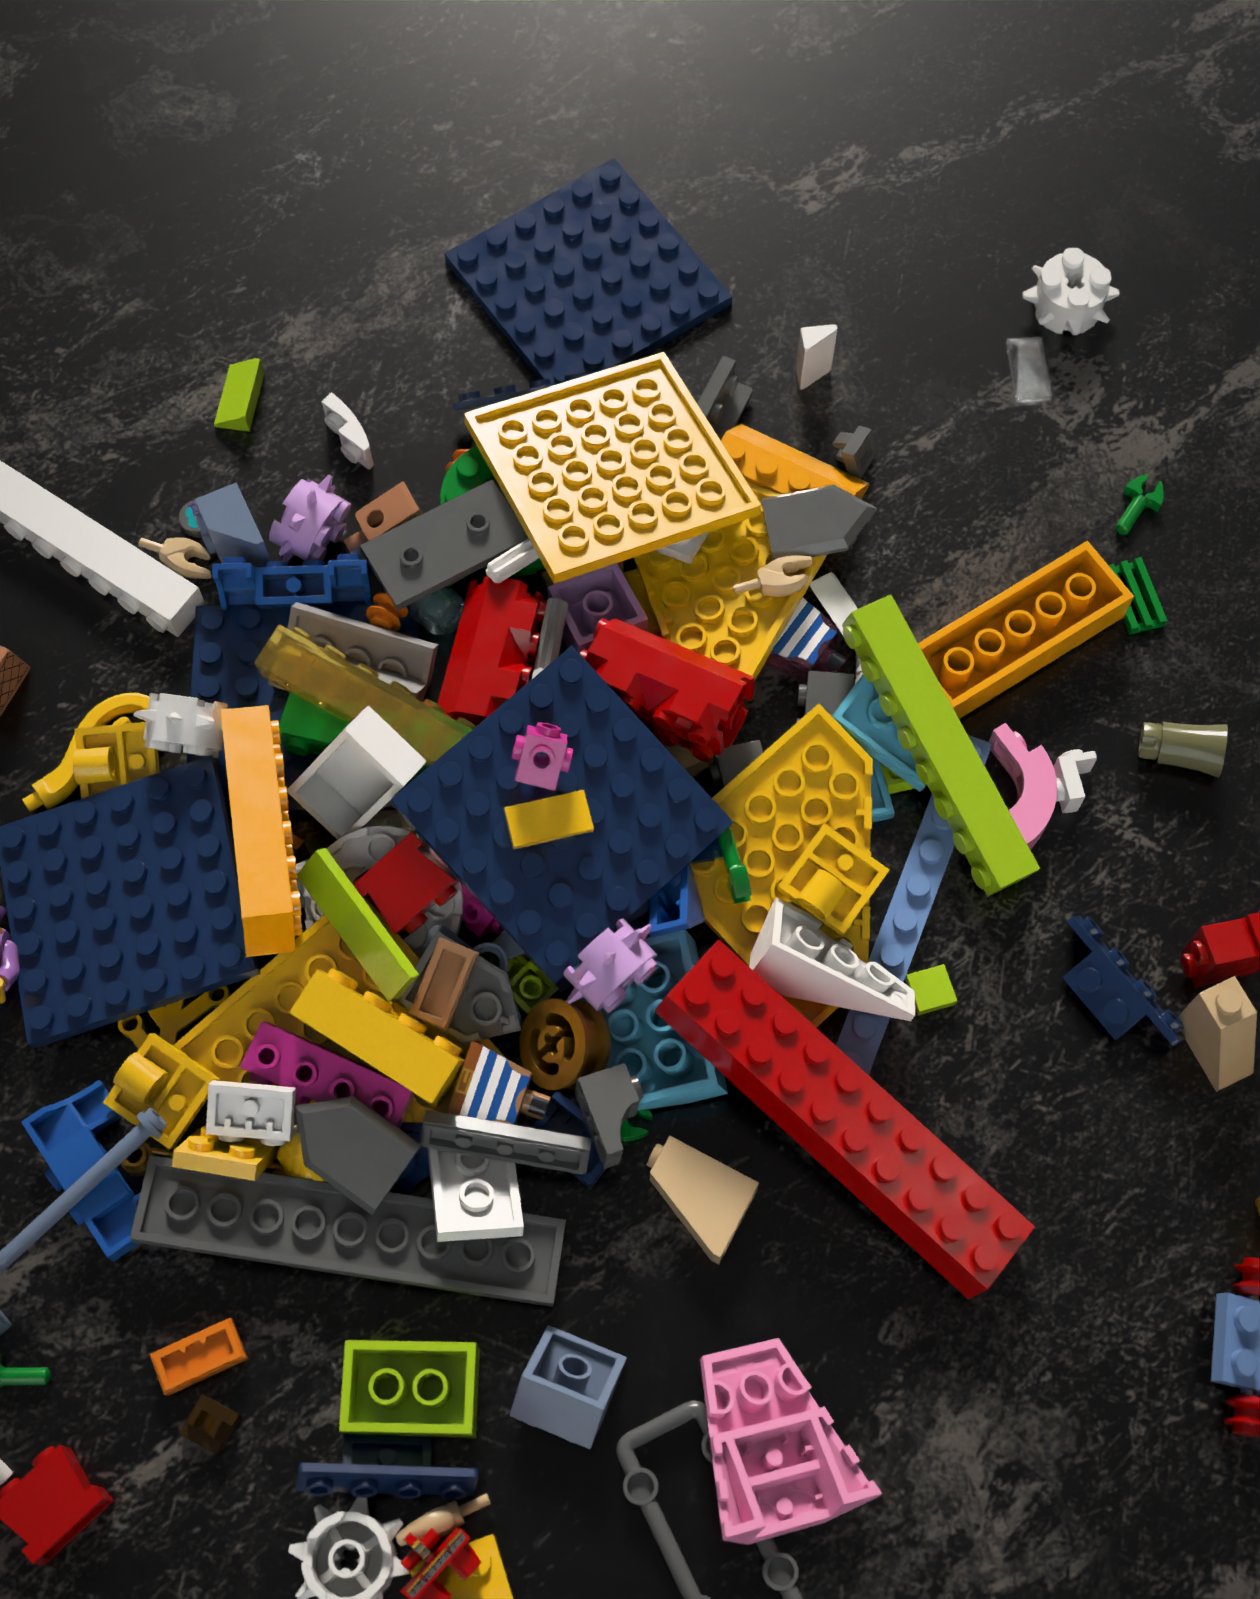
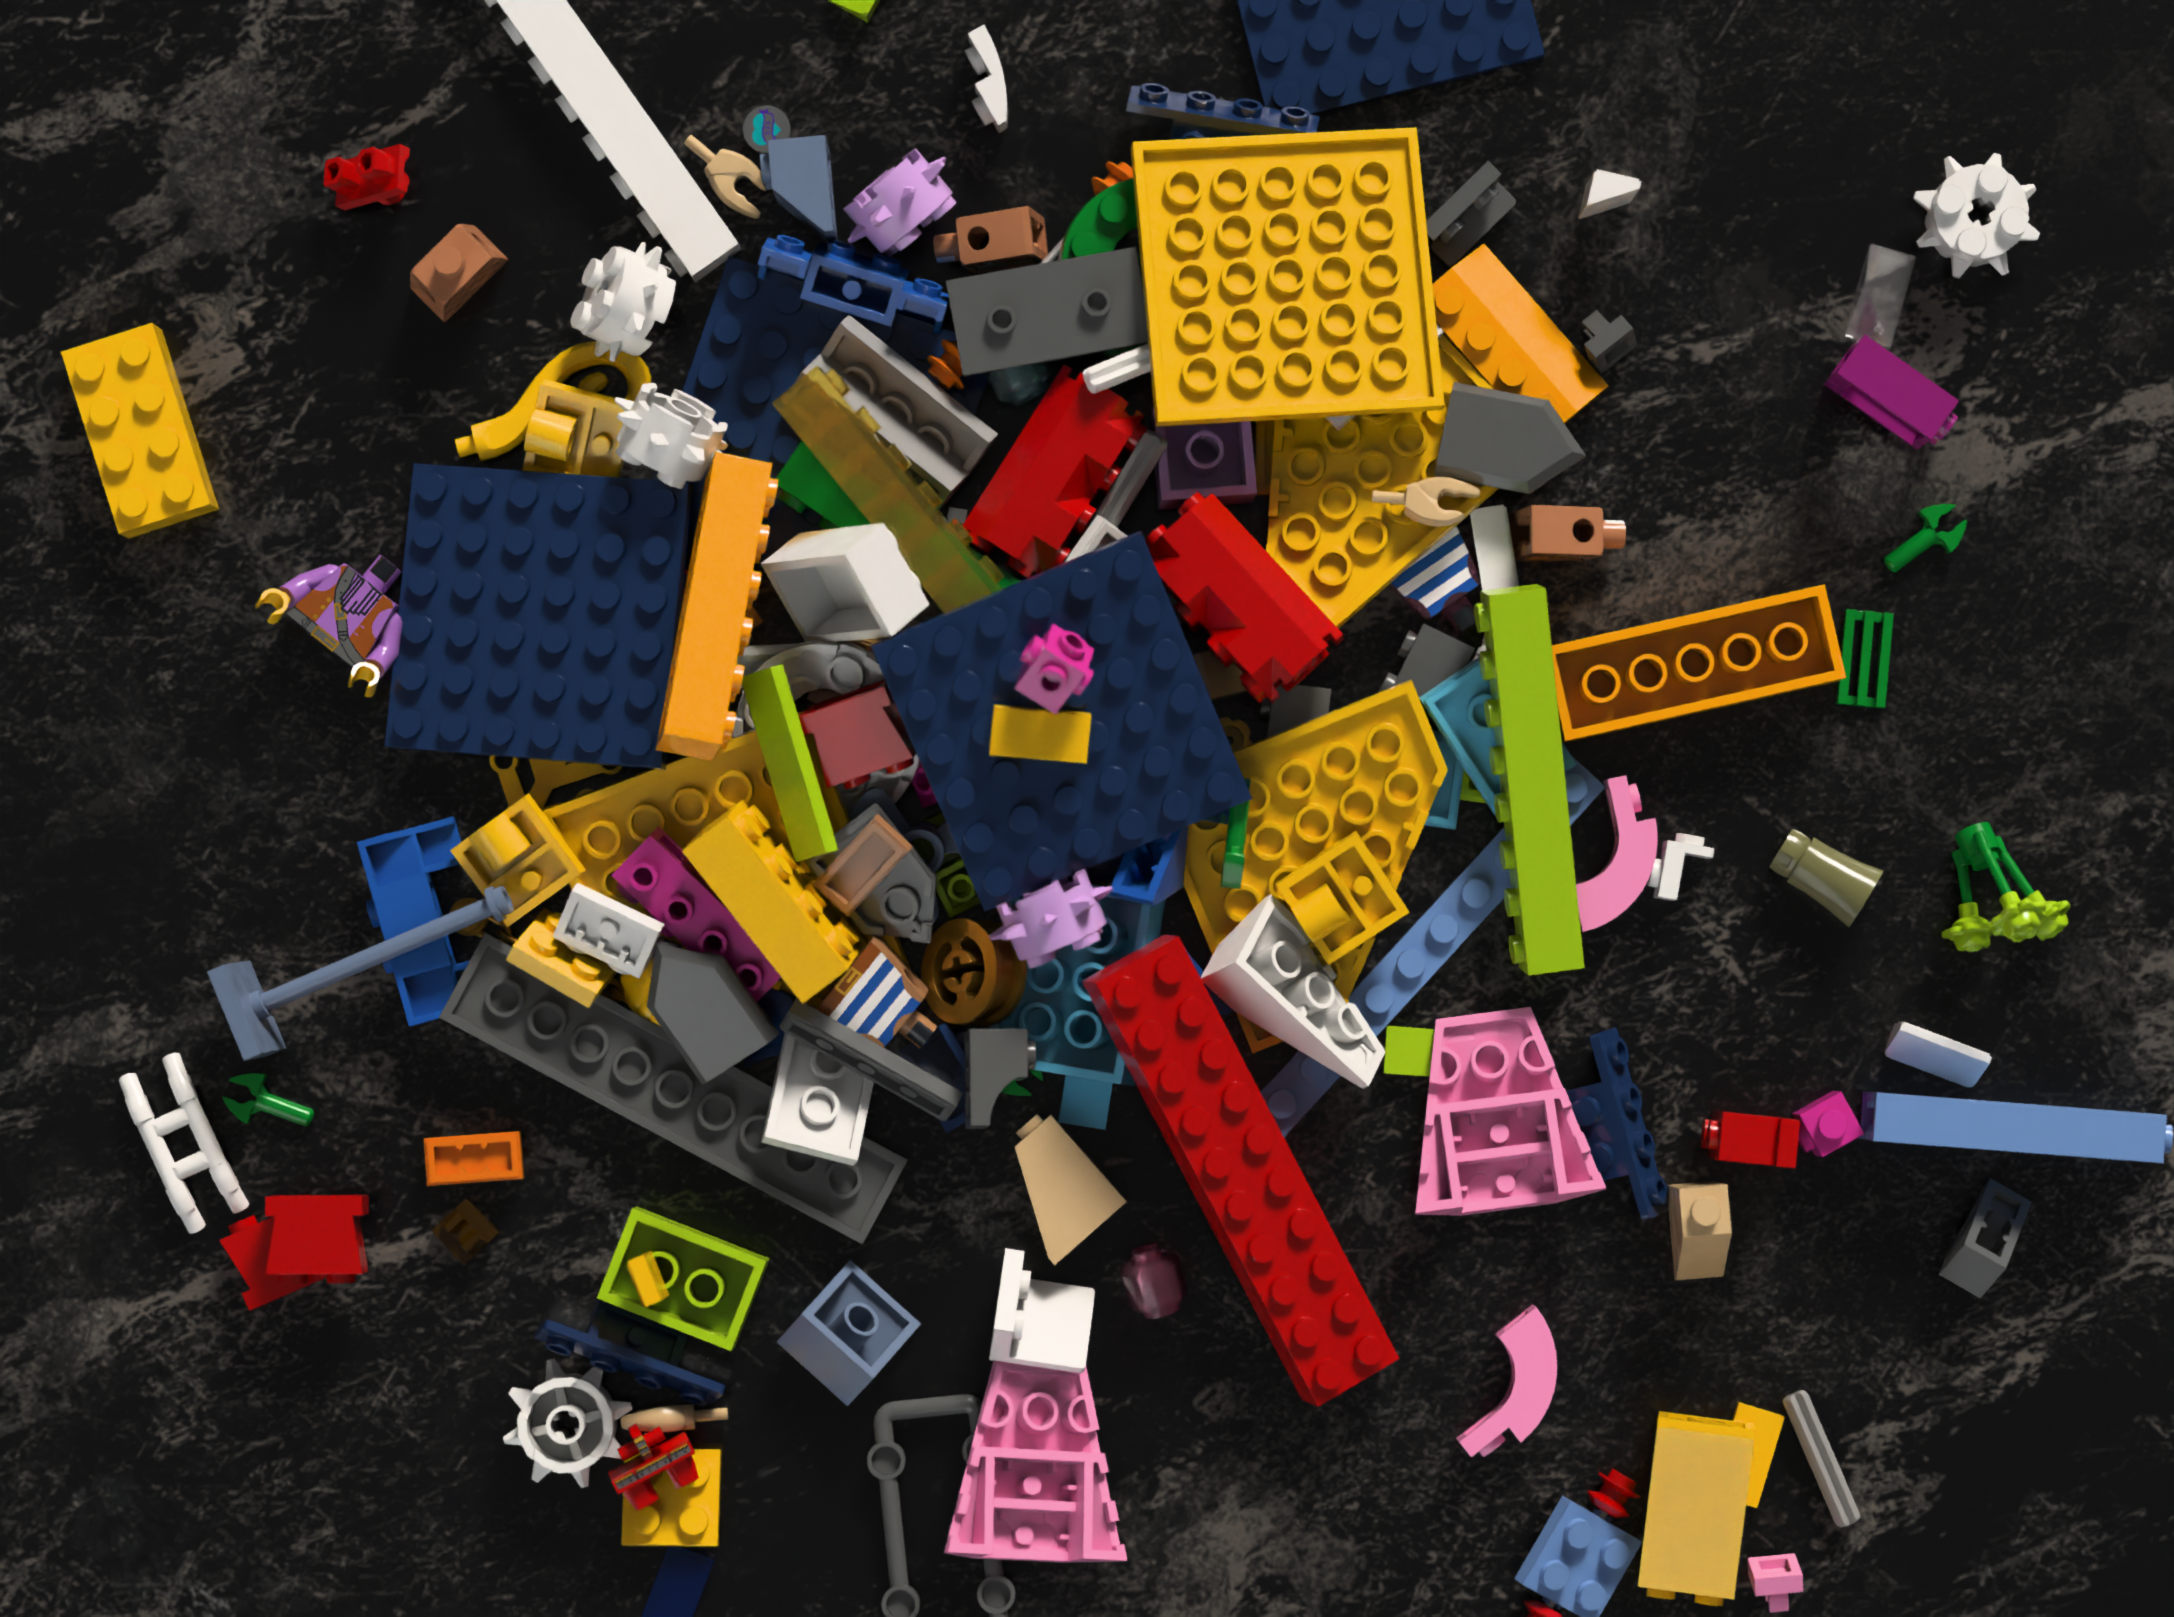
camera: 20 degrees right, 20 degrees up
(72, 1469) = (316, 1237): none -> red hips
(121, 650) = (624, 300): none -> white brick
(375, 1388) = (647, 1279): none -> yellow tile
(693, 1121) = (1085, 1102): none -> medium azure tile
(726, 1311) = (1040, 1320): none -> white bracket
(806, 1244) = (1154, 1281): none -> clear pink head
(883, 573) = (1547, 533): none -> nougat torso
(1028, 1015) = (1498, 1121): none -> bright pink wedge
(1067, 427) = (1893, 393): none -> magenta window
(1147, 1215) = (1530, 1387): none -> bright pink arch

